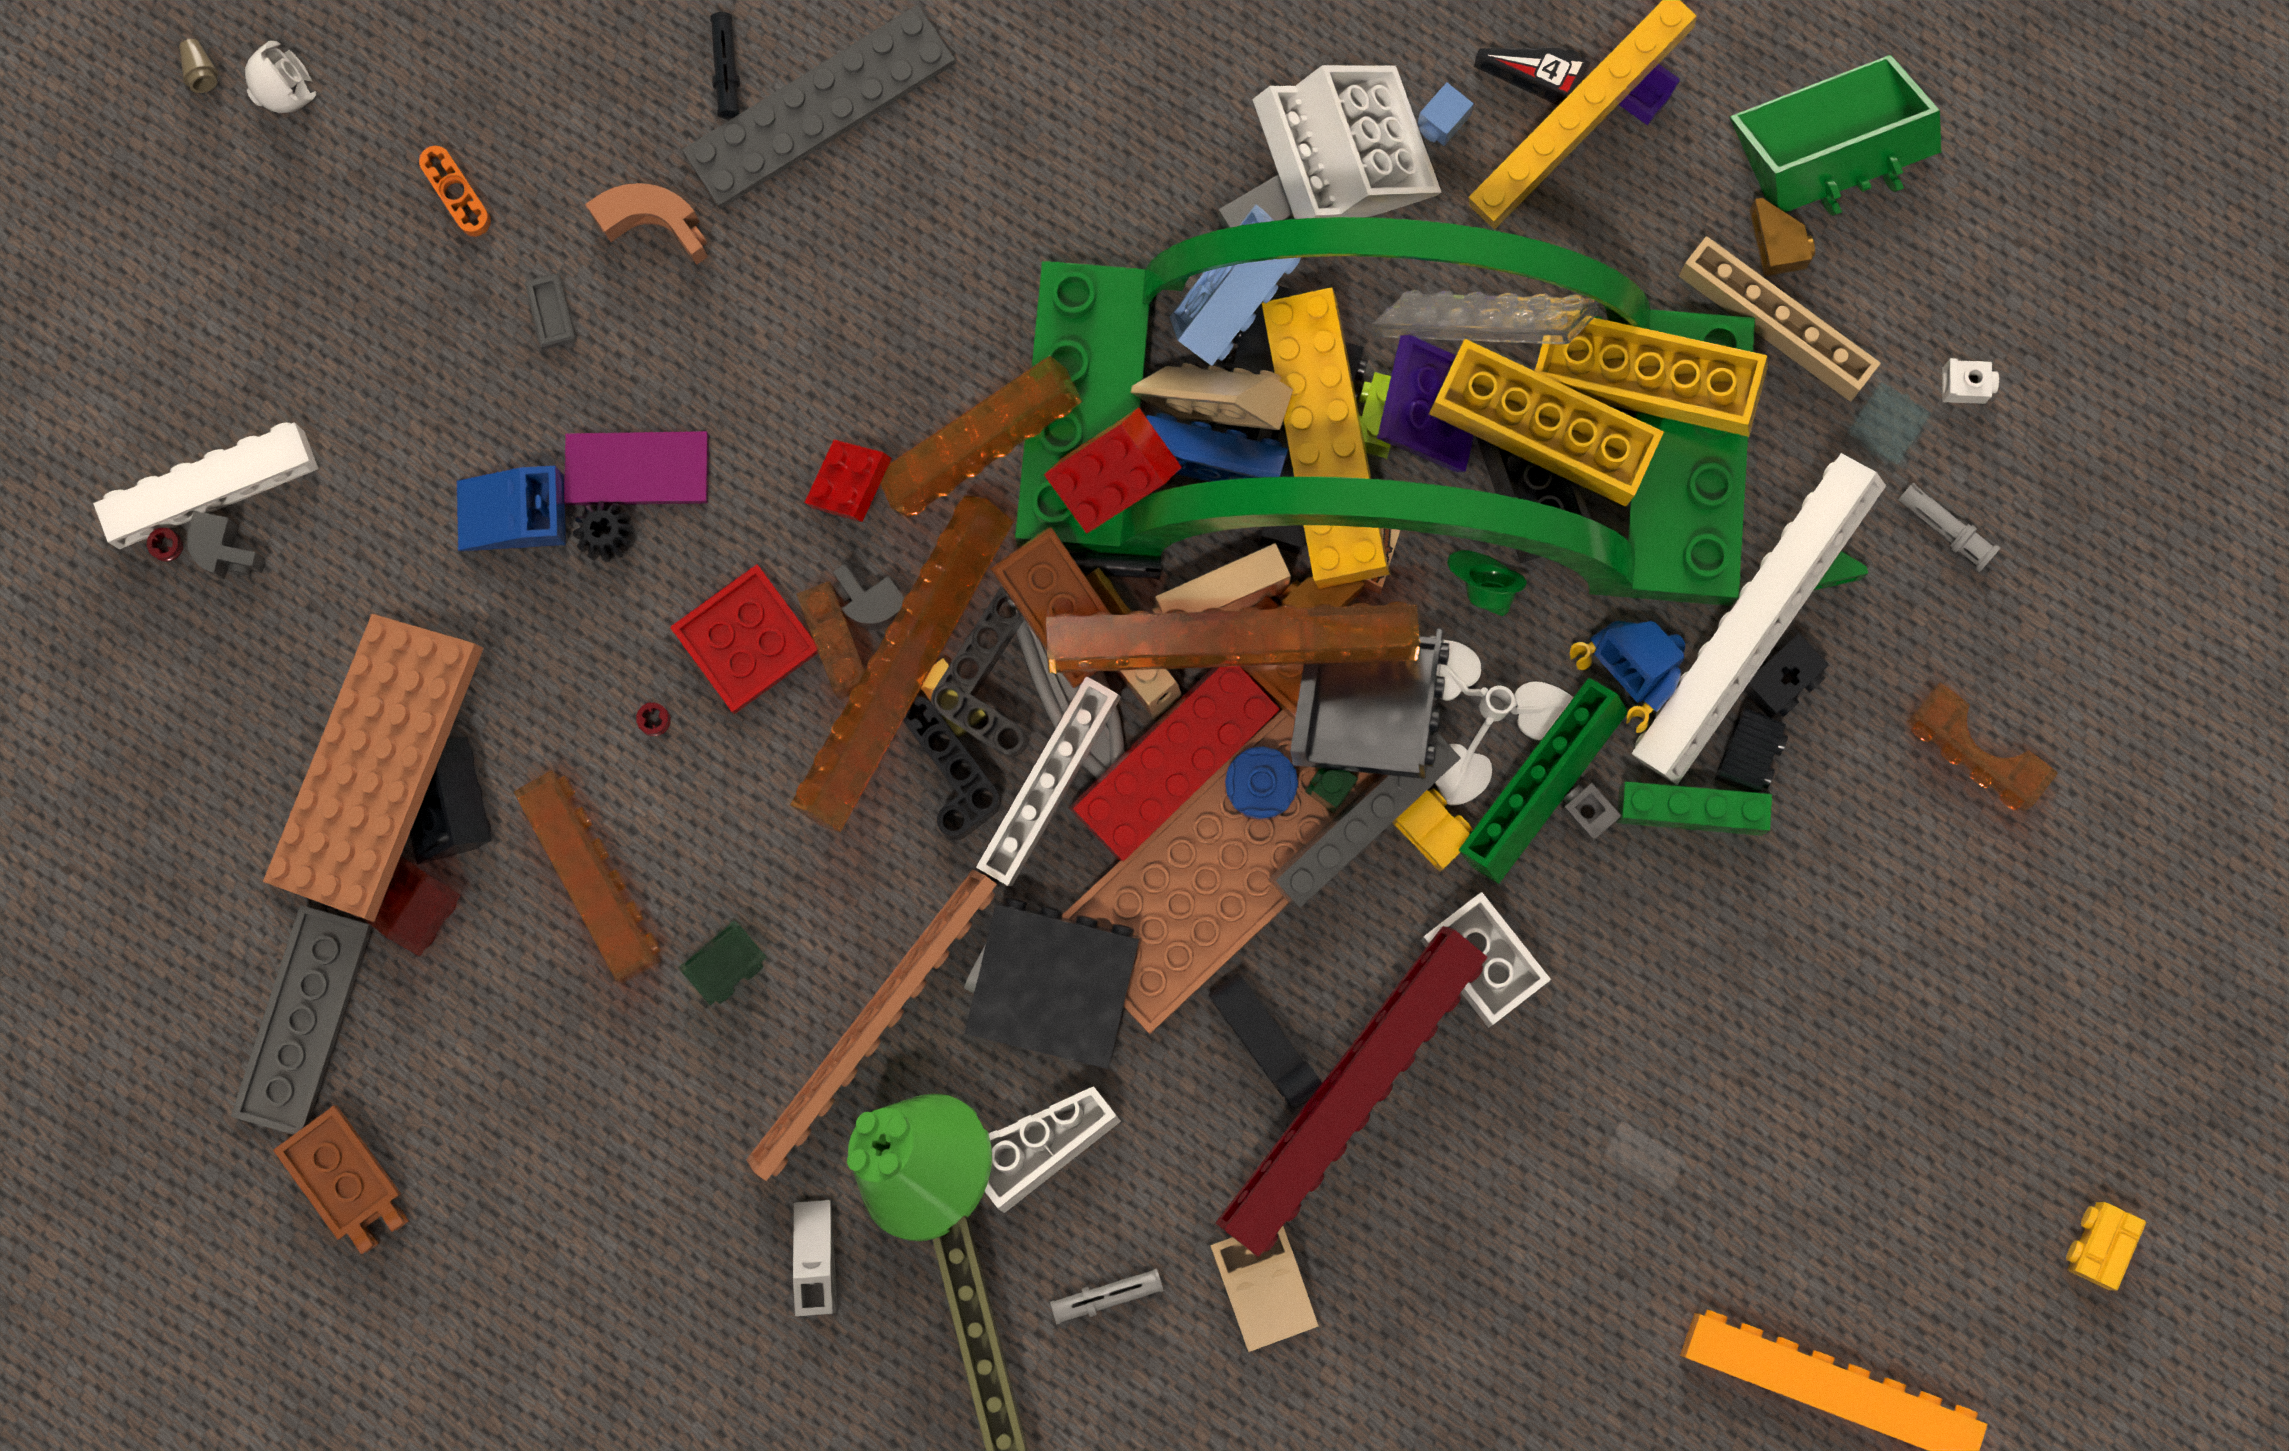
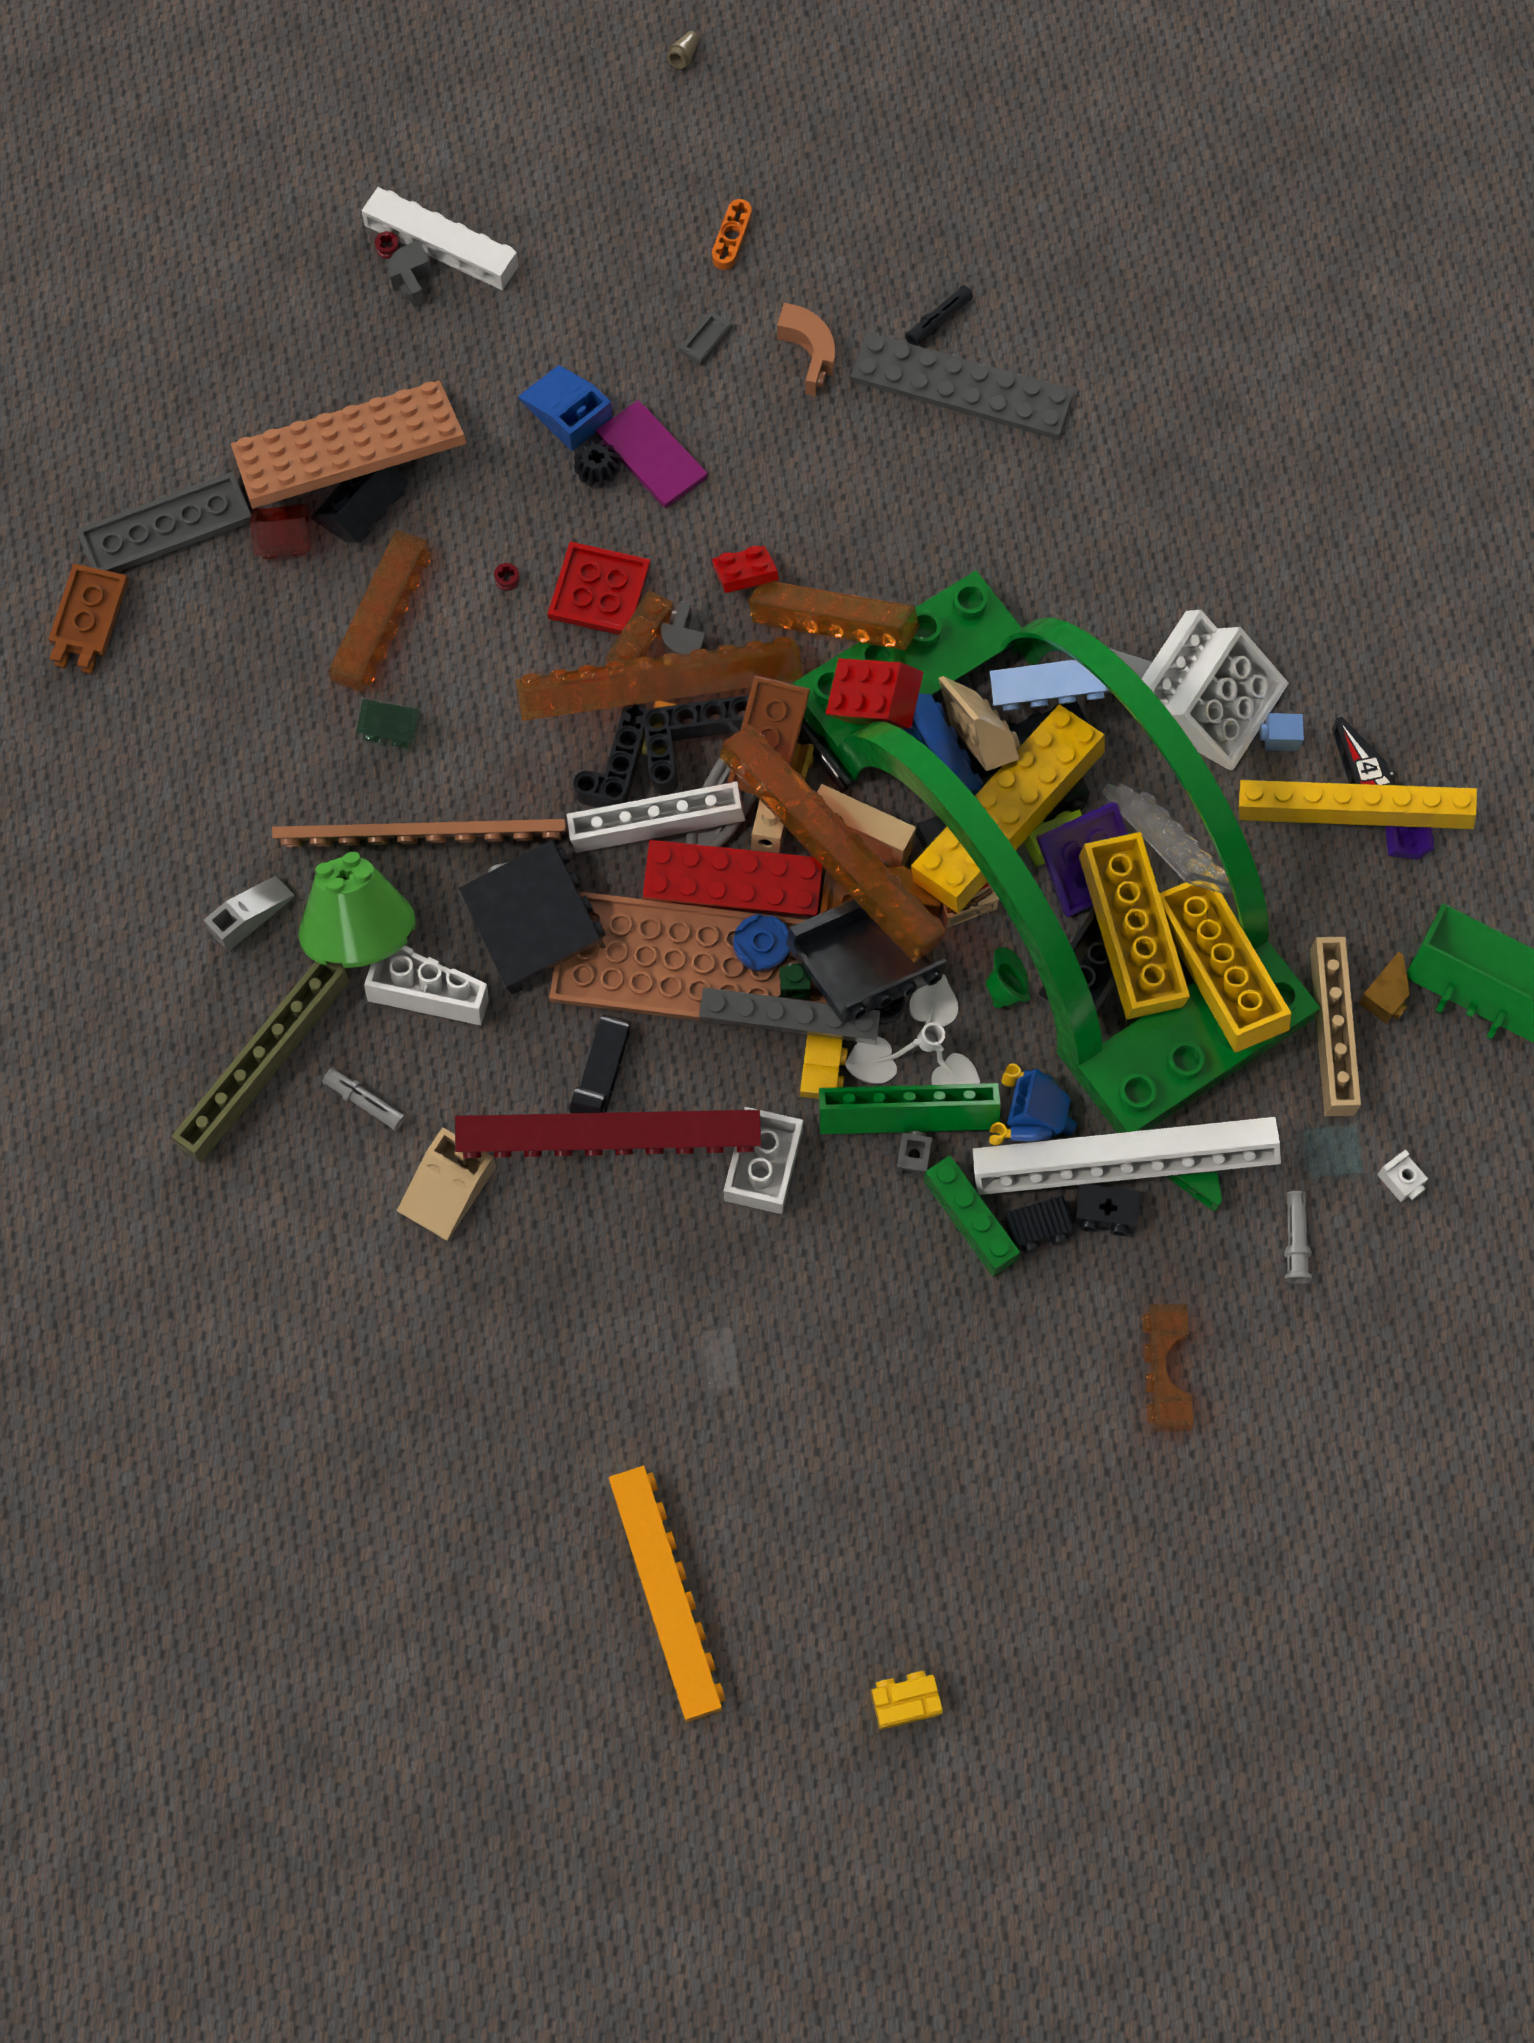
camera: 45 degrees right, 10 degrees down
(272, 75) = (712, 88): white cylinder -> none

